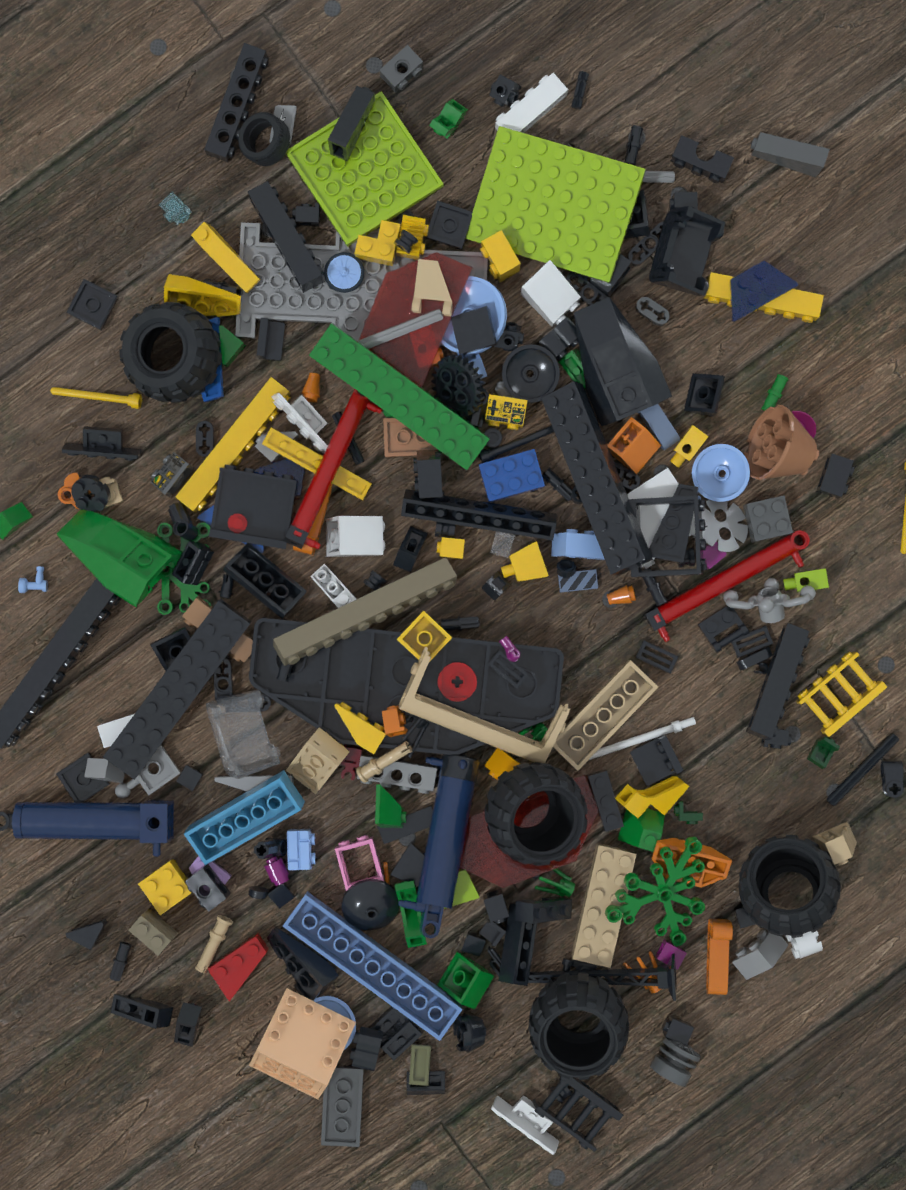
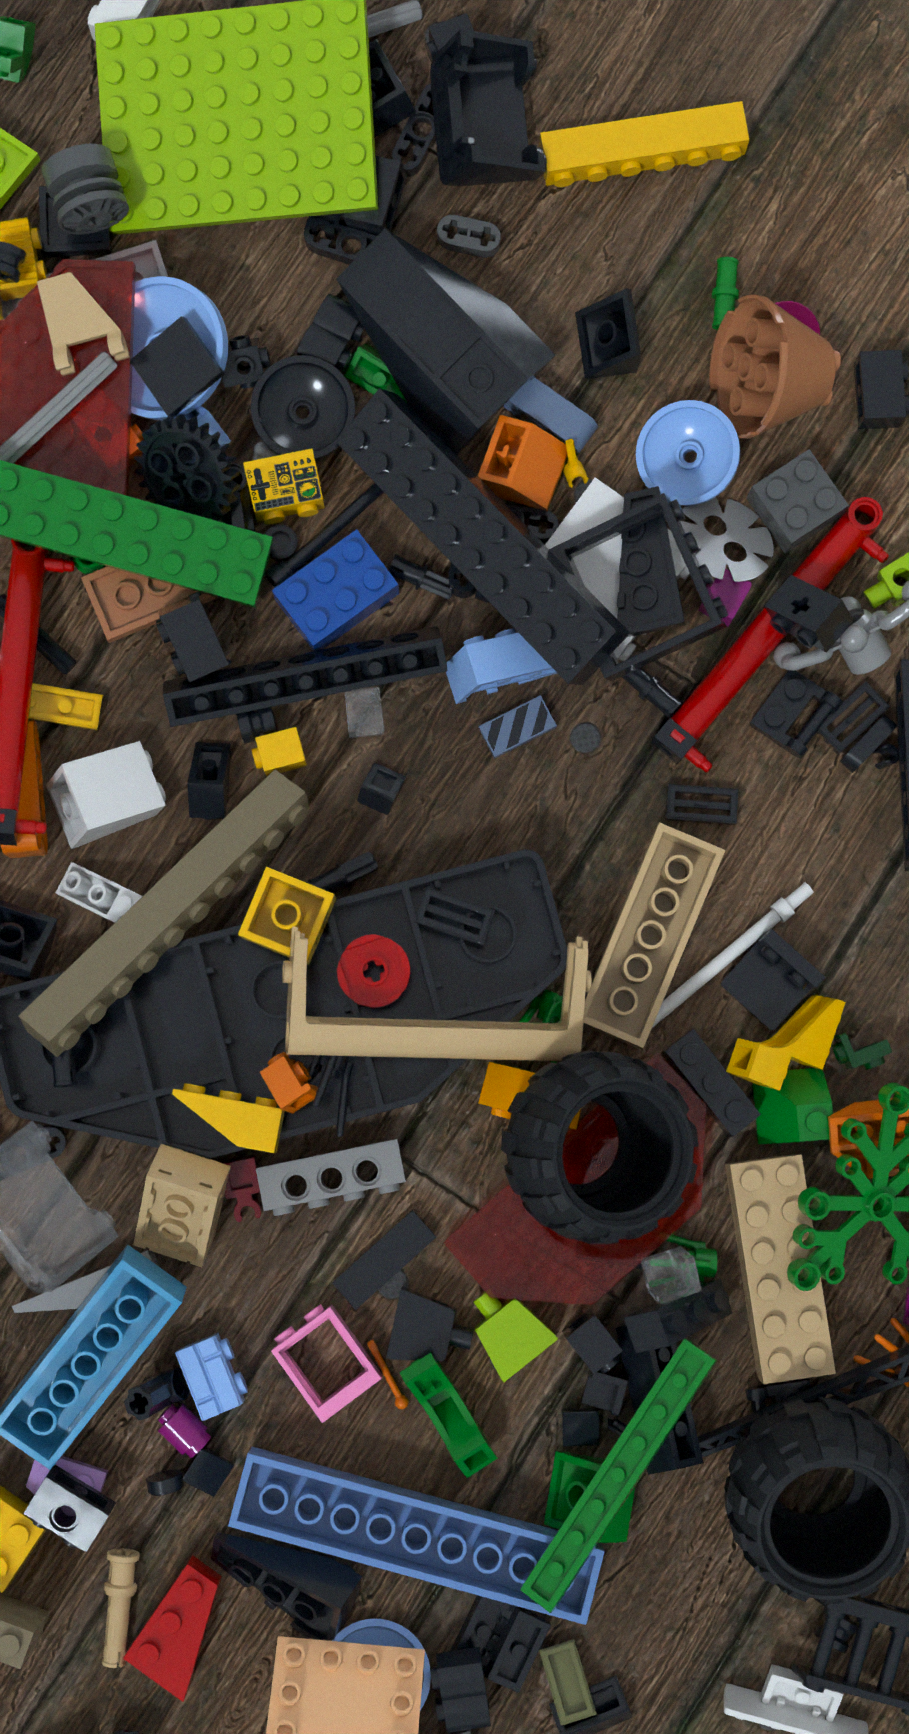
camera: 25 degrees left, 5 degrees down
(367, 897) = (367, 1410): black dish -> none
(374, 581) = (167, 856): black wheel -> none
(376, 766) = (288, 1174): tan pin -> none
(388, 811) = (339, 1247): green slope -> none
(445, 839) = (458, 1258): dark blue piece -> none
(461, 215) = (85, 189): none -> dark grey wheel
(469, 1032) = (633, 1588): black cone -> none
(484, 975) = (618, 1475): none -> green plate
(501, 255) = (183, 235): yellow brick -> none
(511, 651) = (450, 885): magenta arm -> none
(526, 564) = (418, 731): yellow torso -> none
(547, 888) = (671, 1275): none -> clear panel
(550, 294) = (285, 266): white slope -> none
(566, 568) = (489, 712): black tile -> none
(622, 596) = (602, 722): orange cone -> none
(659, 457) = (574, 467): none -> yellow hand
(689, 559) = (692, 616): black wheel -> none
(695, 439) = (617, 415): yellow torso -> none
(748, 583) = (808, 614): none -> black brick
(756, 288) = (628, 128): clear blue wing -> none

